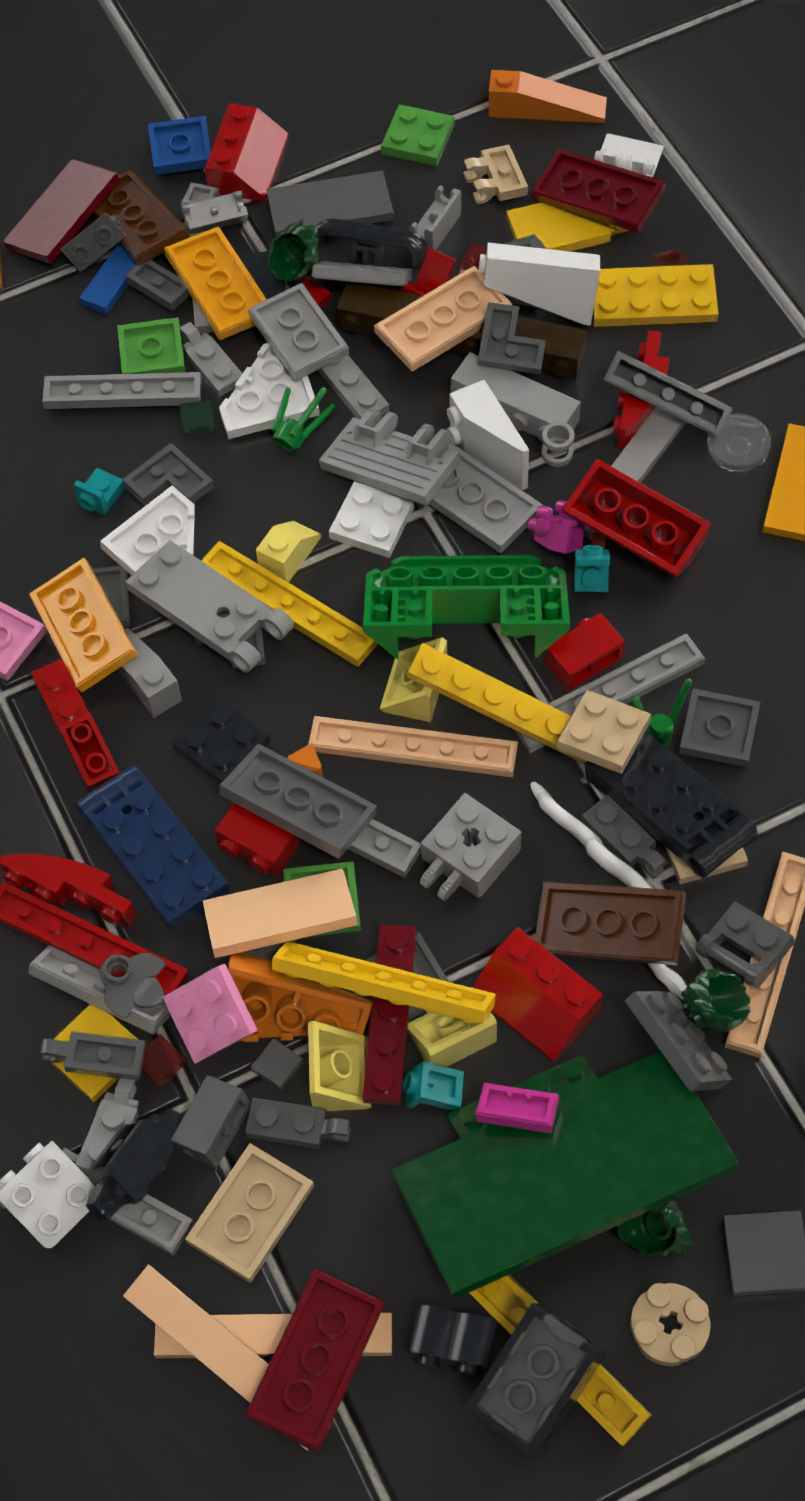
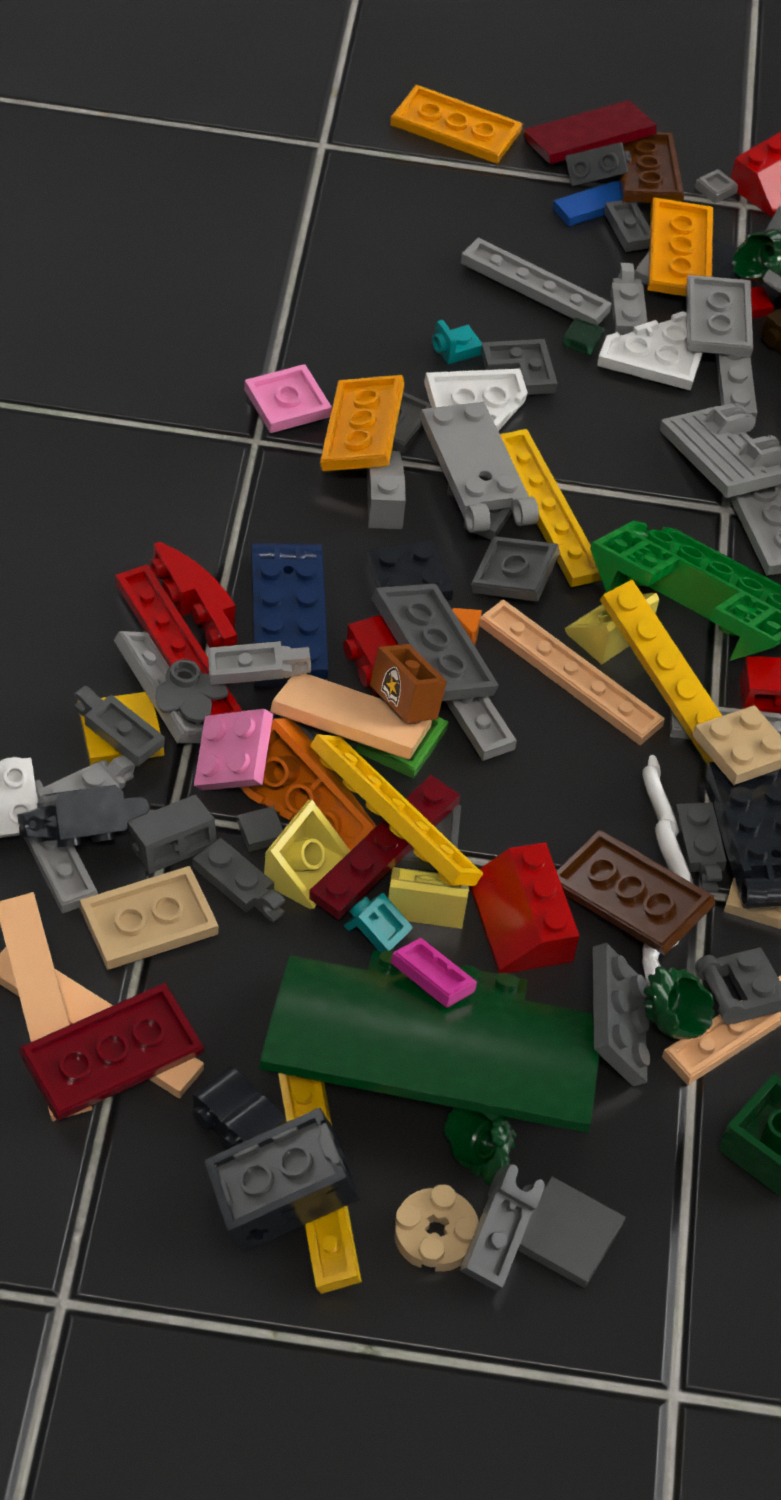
camera: 25 degrees right, 10 degrees down
(75, 724) = (298, 488): red slope -> none
(151, 347) = (586, 264): bright green plate -> none
(161, 1061) = (168, 768): clear red tile -> none
(169, 920) = (256, 662): none -> light grey hinge
(179, 145) = (728, 136): blue plate -> none
(215, 212) = (726, 201): light grey hinge -> none
(286, 548) = (579, 466): light yellow slope -> none
(289, 433) = (651, 386): green plant -> none
(304, 681) = (515, 568): none -> dark grey tile
(309, 857) = (408, 683): none -> dark orange brick
(371, 519) = (672, 489): white plate -> none
(475, 867) = (553, 767): light grey hinge -> none
(723, 1290) = (501, 1228): none -> dark grey plate

